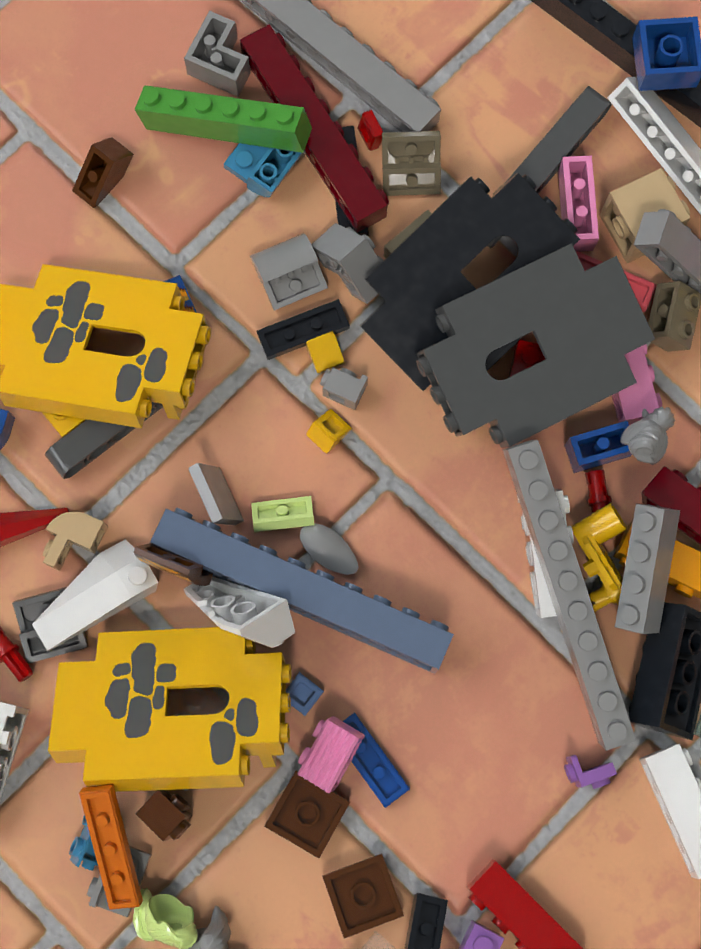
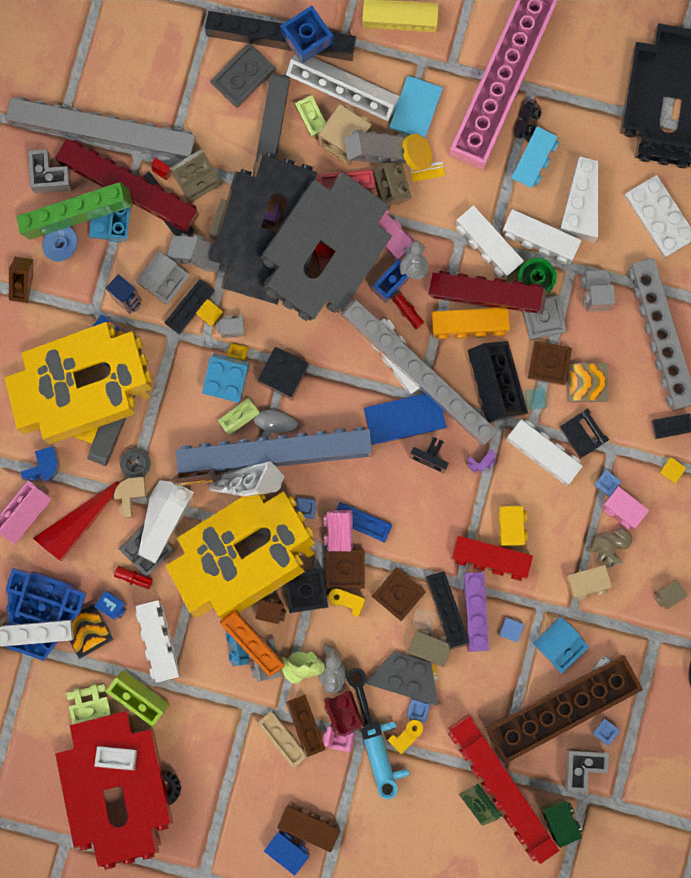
camera: 30 degrees left, 5 degrees up
(109, 485) = (132, 455): none -> dark grey gear
(180, 155) = (53, 242): none -> medium blue dish
(215, 494) = (196, 427): light grey tile -> none
(223, 260) = (124, 294): none -> dark blue brick
(234, 817) = (307, 592): none -> black brick
(278, 852) = (339, 597): none -> yellow leg
(295, 450) = (226, 377): none -> dark azure brick
(378, 489) = (283, 373): none -> black brick
(481, 273) = (270, 218): none -> medium lavender bracket
(510, 647) = (403, 418): none -> blue tile
(517, 724) = (429, 457): none -> black tile
(548, 72) = (243, 75): none -> dark grey tile
(579, 199) = (303, 145): bright pink brick -> none
(582, 892) = (512, 526): none -> yellow brick
(590, 535) = (413, 333): yellow piece -> none
(610, 168) = (311, 115): none -> yellowish green plate
(647, 569) = (453, 335): light grey brick -> none

